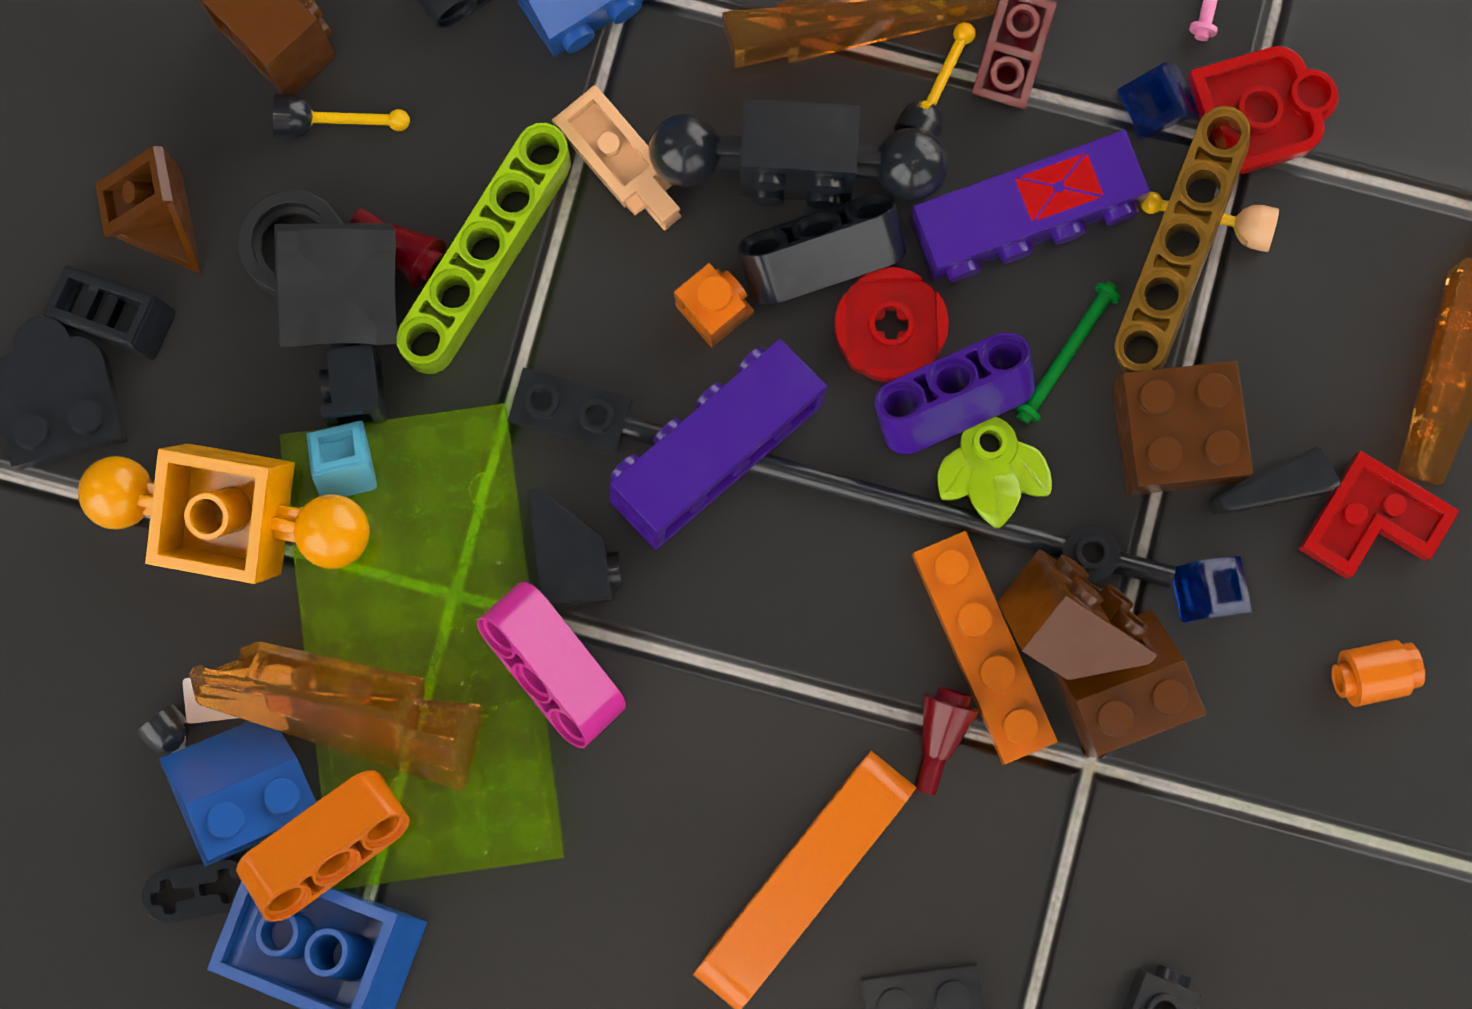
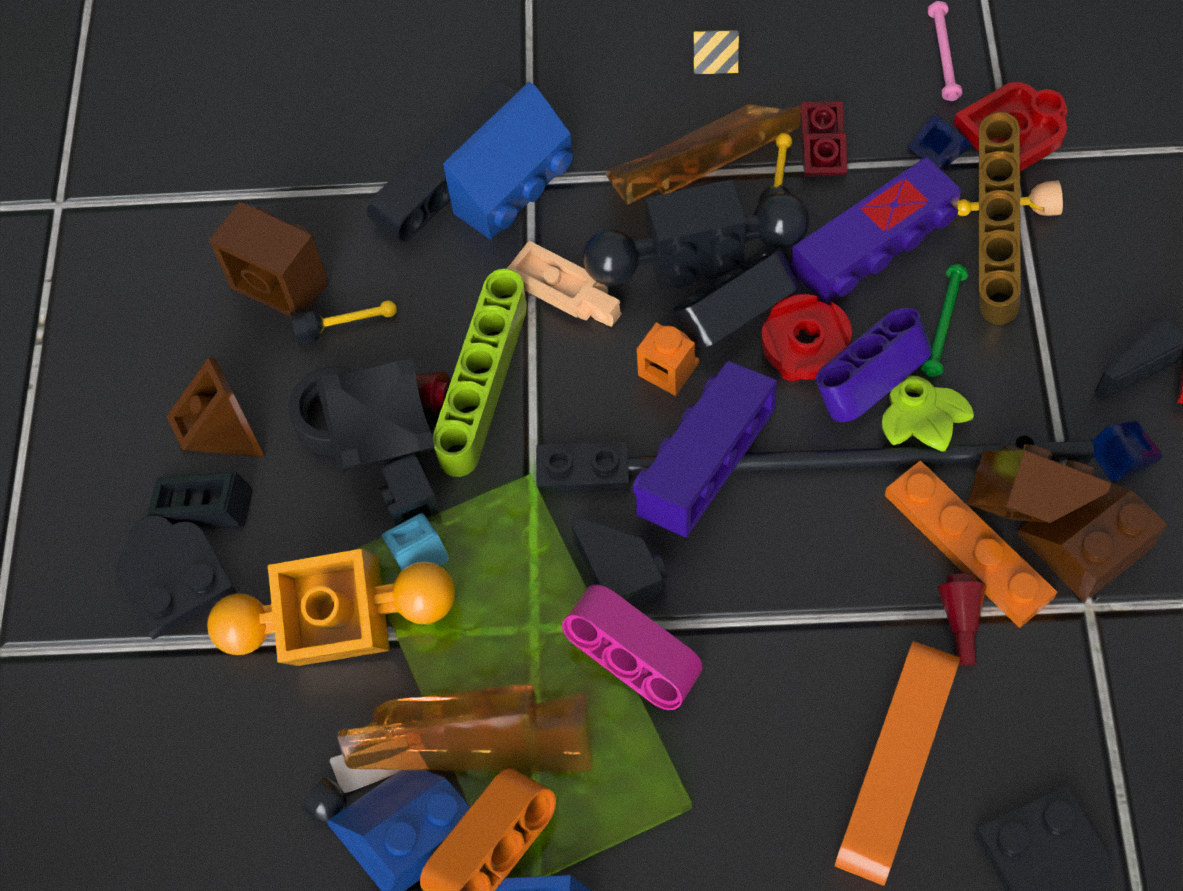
camera: 10 degrees left, 20 degrees down
(1182, 428) = (1053, 340): reddish brown brick -> none

